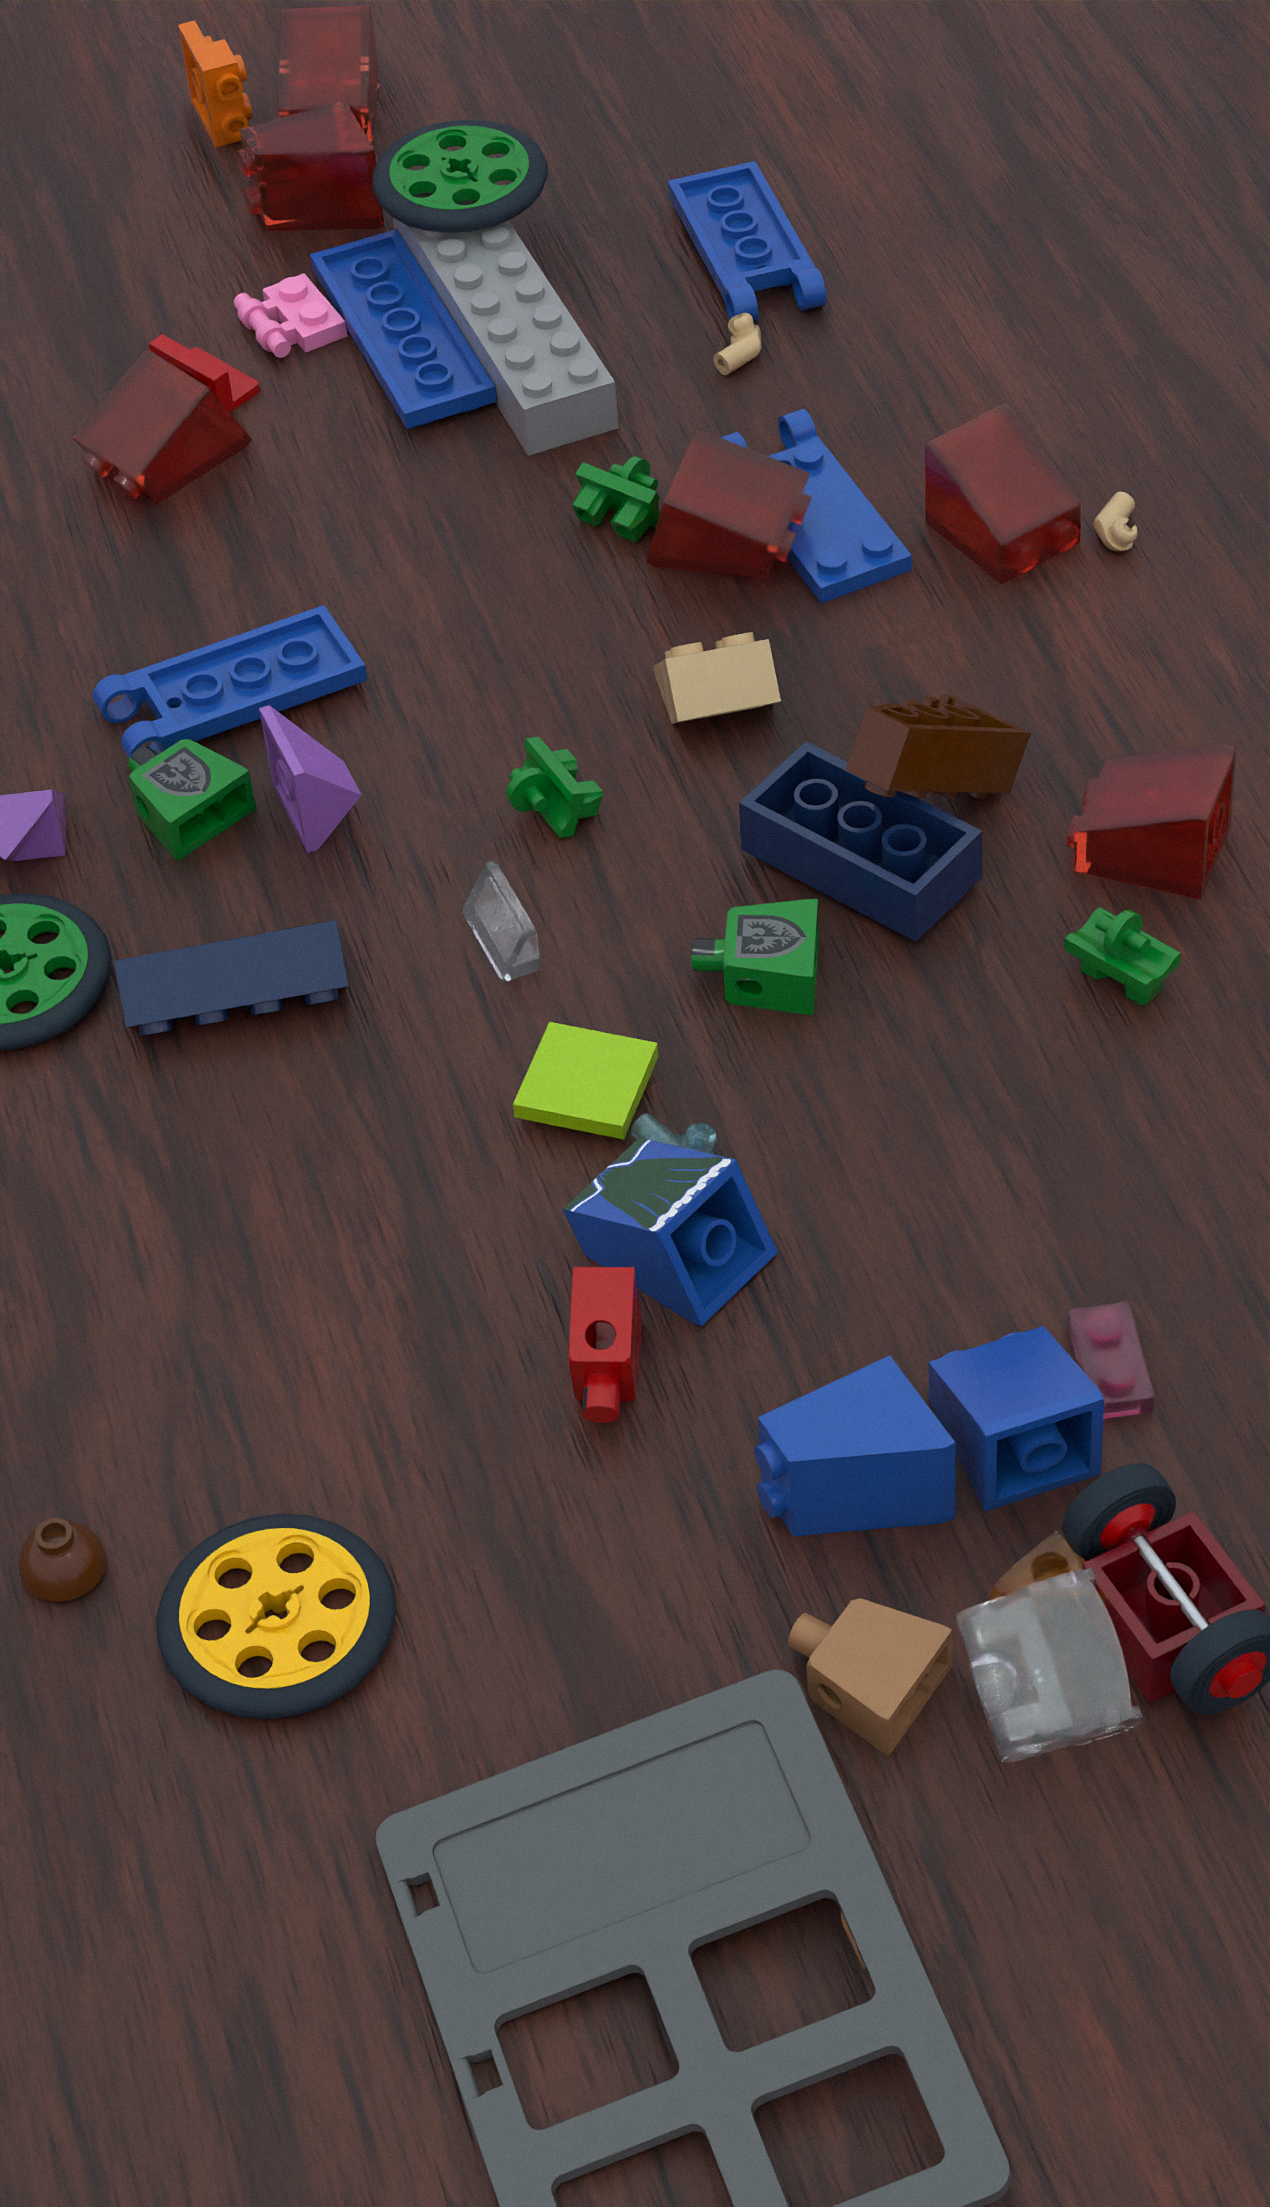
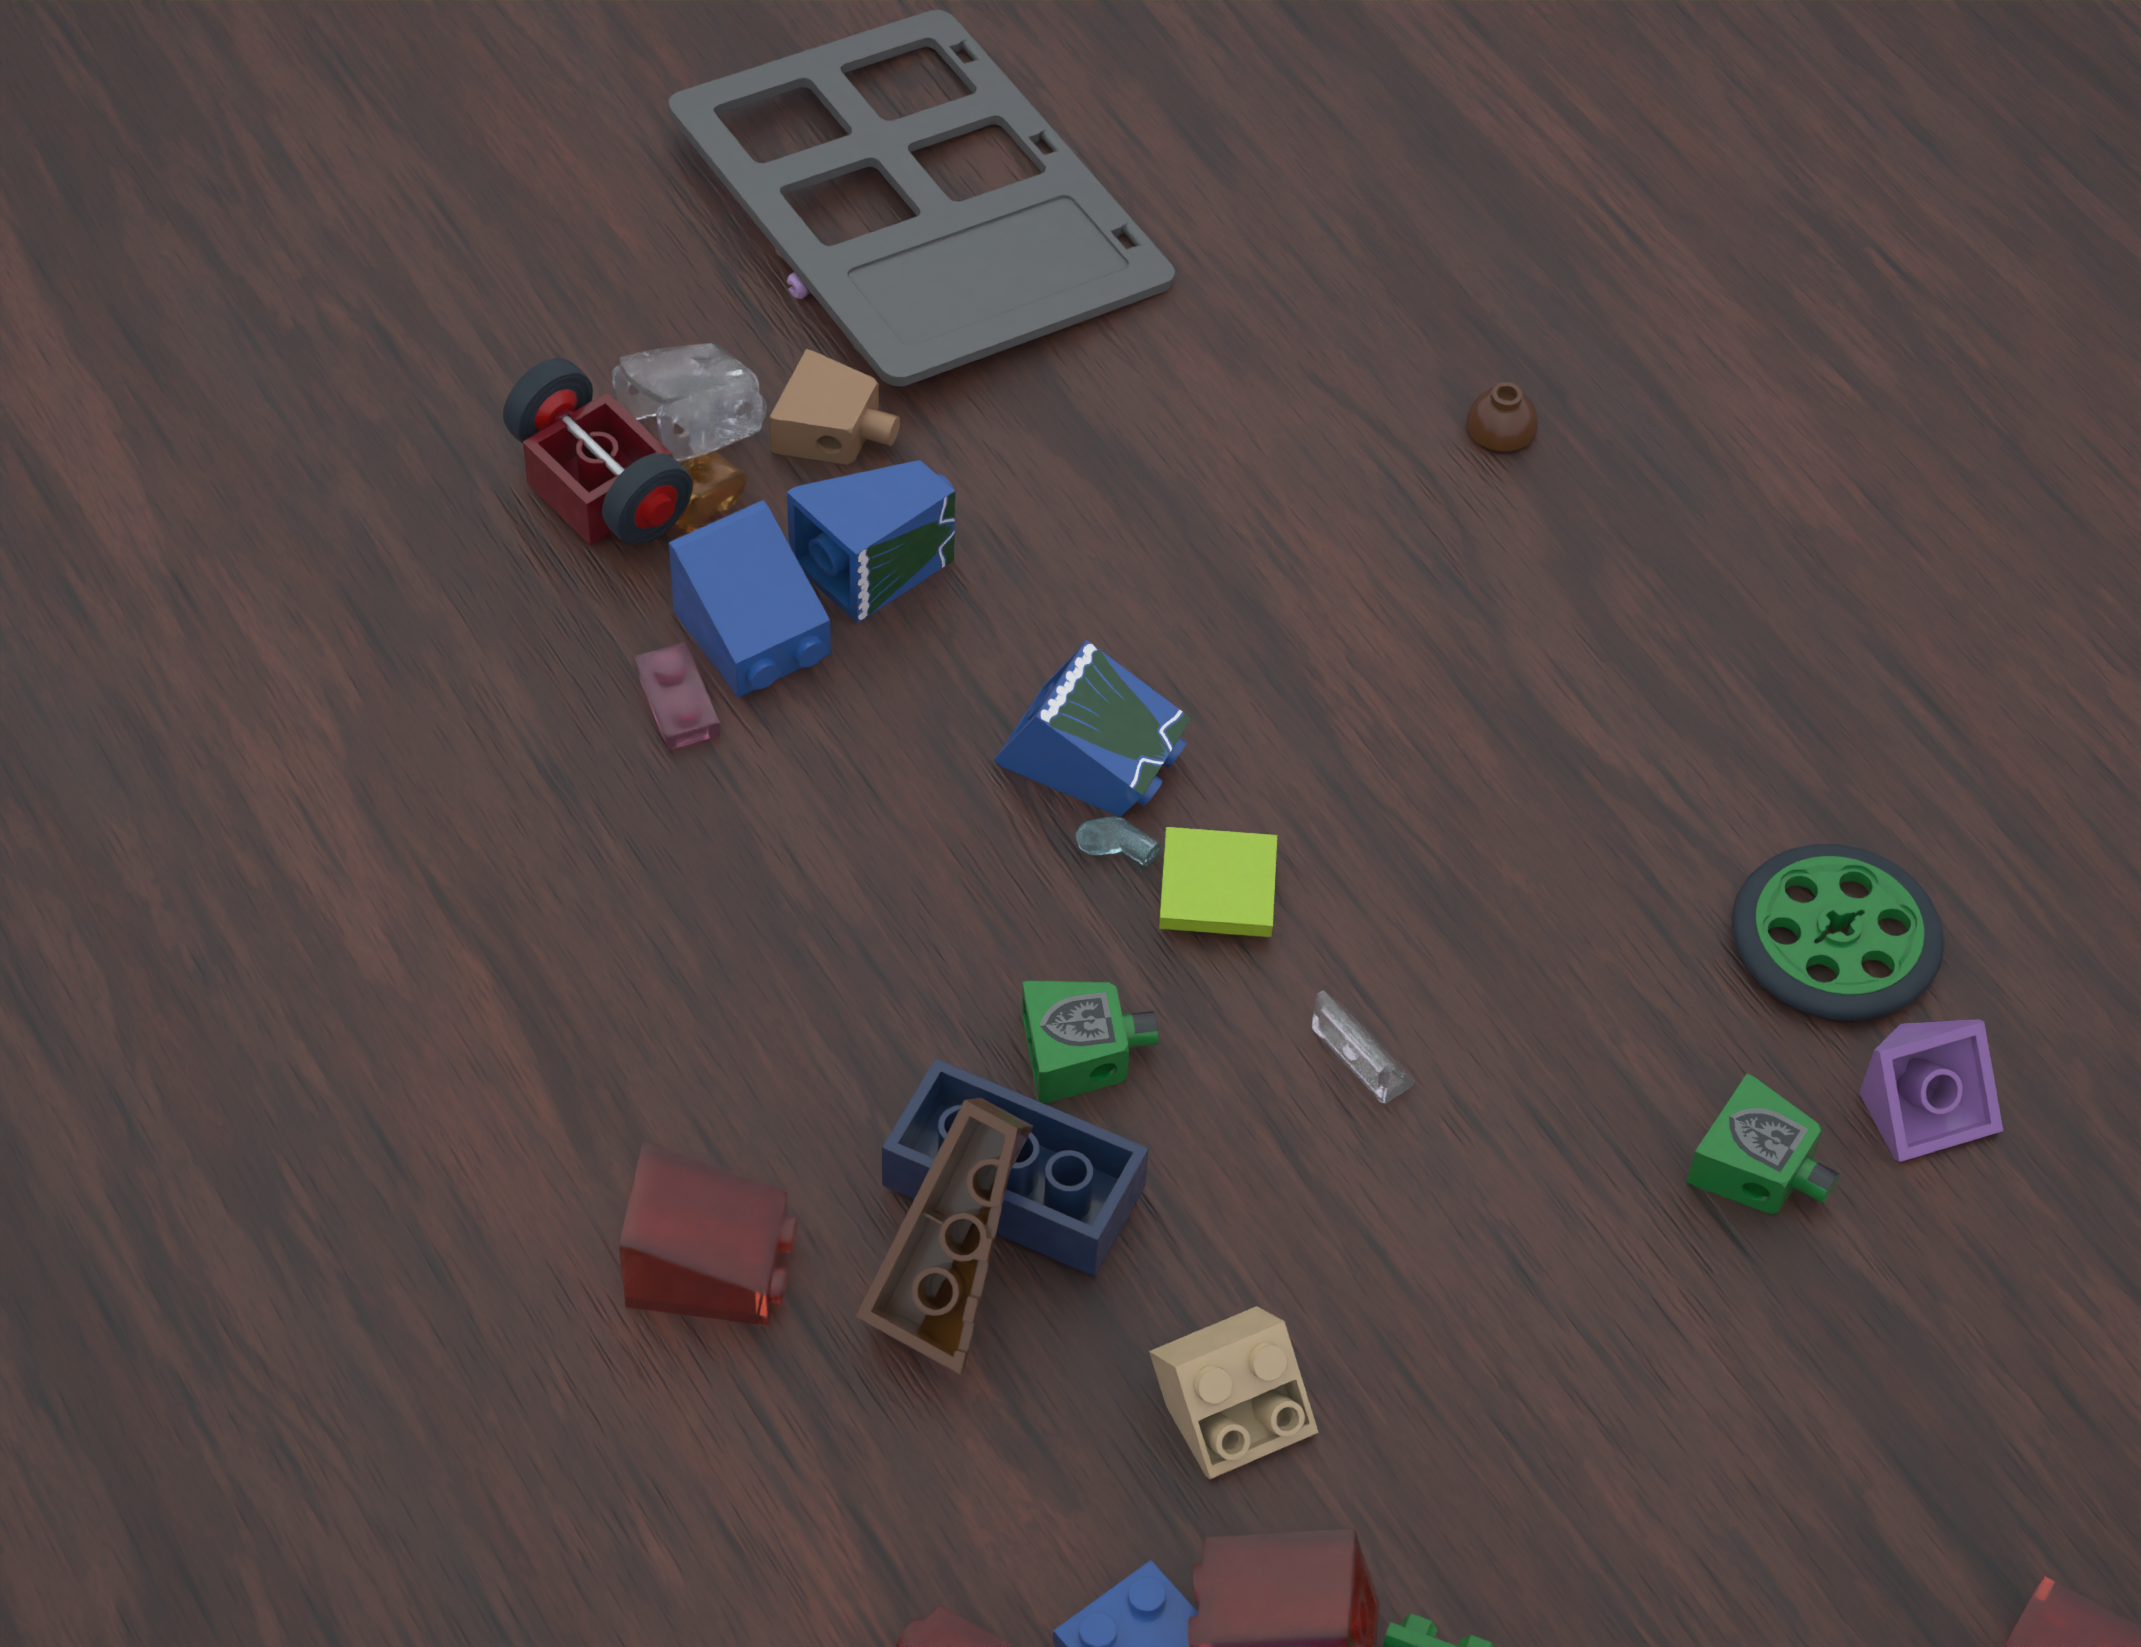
camera: 160 degrees right, 5 degrees up
(231, 680) = (1777, 1319): blue hinge -> none
(231, 974) = (1586, 946): dark blue wedge -> none
(292, 1683) = (1278, 445): wedge -> none
(307, 779) = (1636, 1152): medium lavender slope -> none
(550, 788) = (1348, 1200): green hips -> none
(604, 1340) = (1118, 595): red torso -> none
(1121, 950) = (719, 1076): green hips -> none

